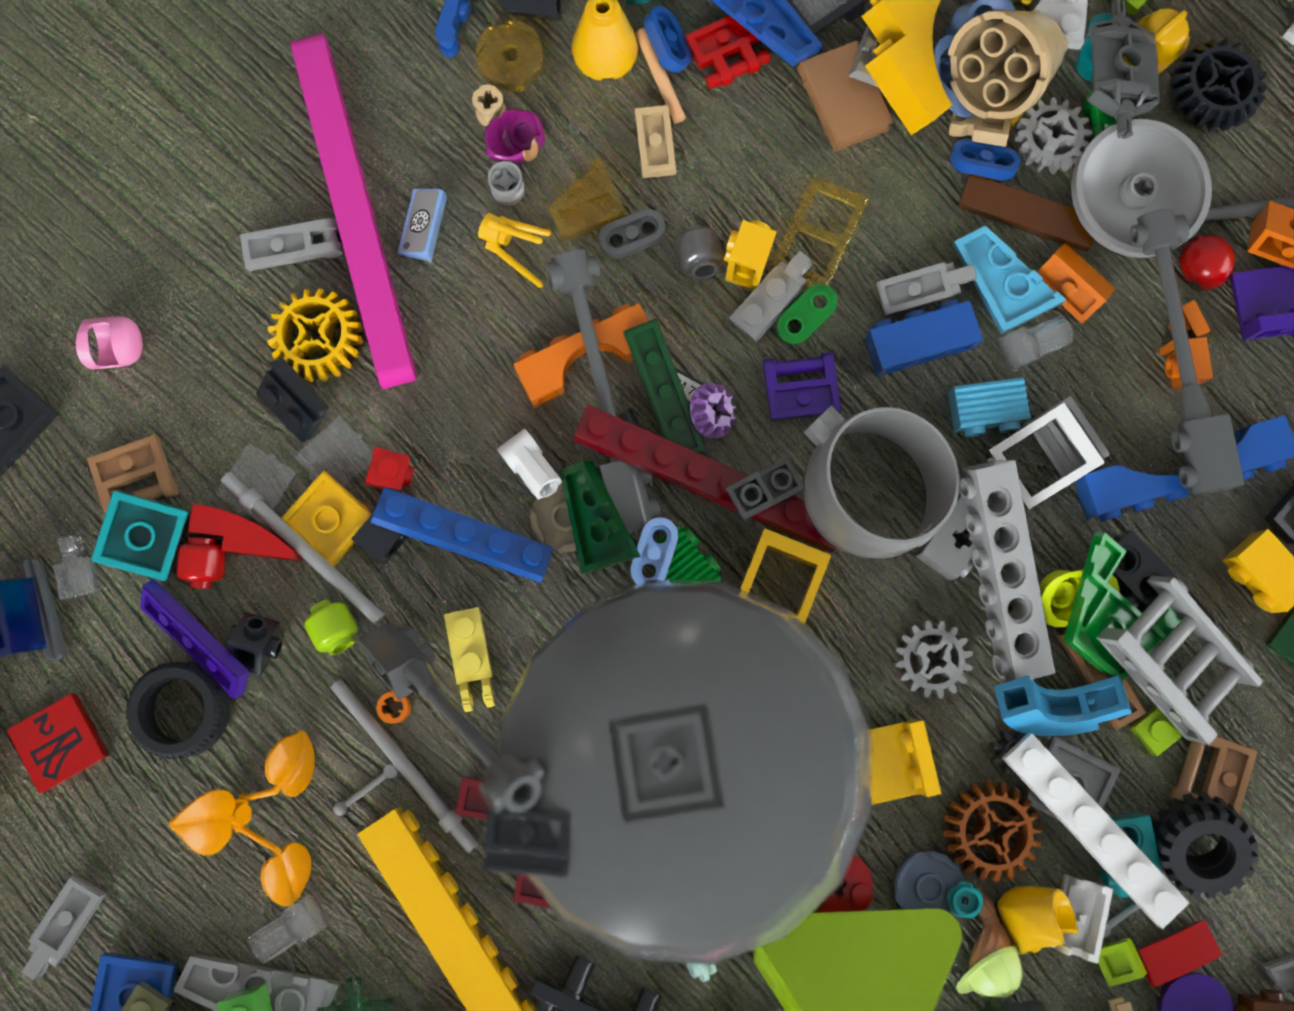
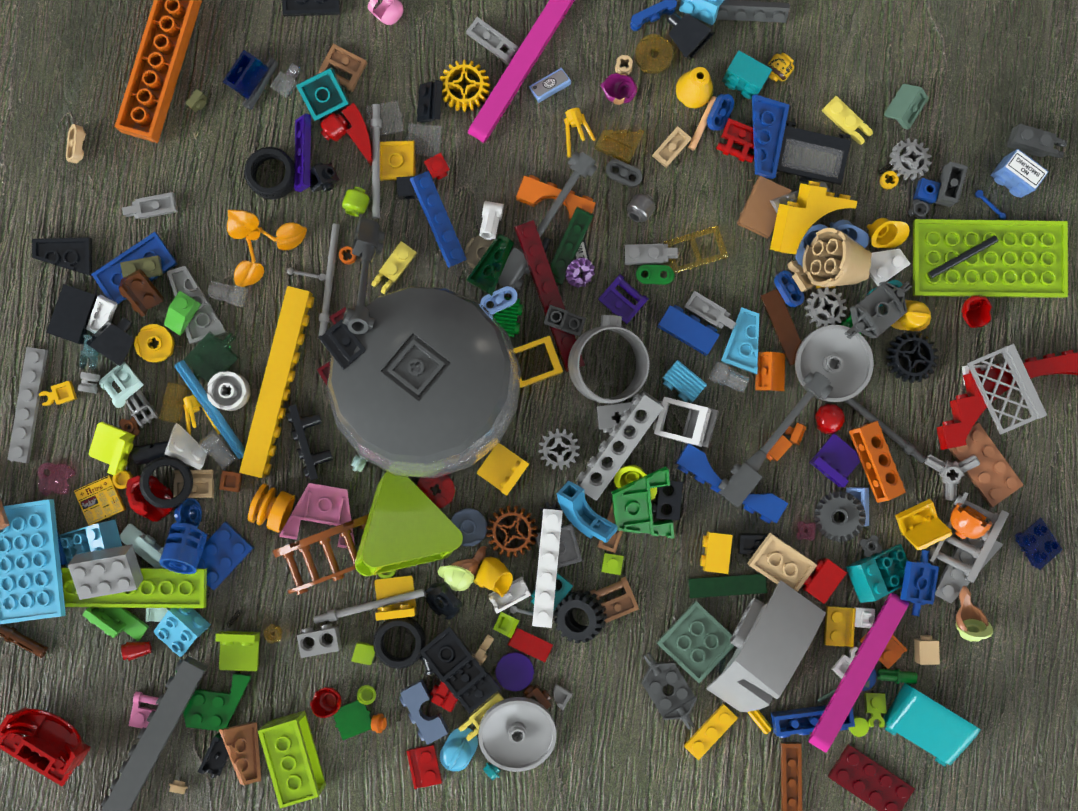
camera: 50 degrees right, 5 degrees up
(57, 743) = (215, 138): red tile -> none
(504, 175) = (597, 99): light grey wheel -> none
(748, 253) = (657, 228): yellow brick -> none
(972, 907) = (475, 538): teal plate -> none
(1148, 669) = (628, 552): light grey fence -> none

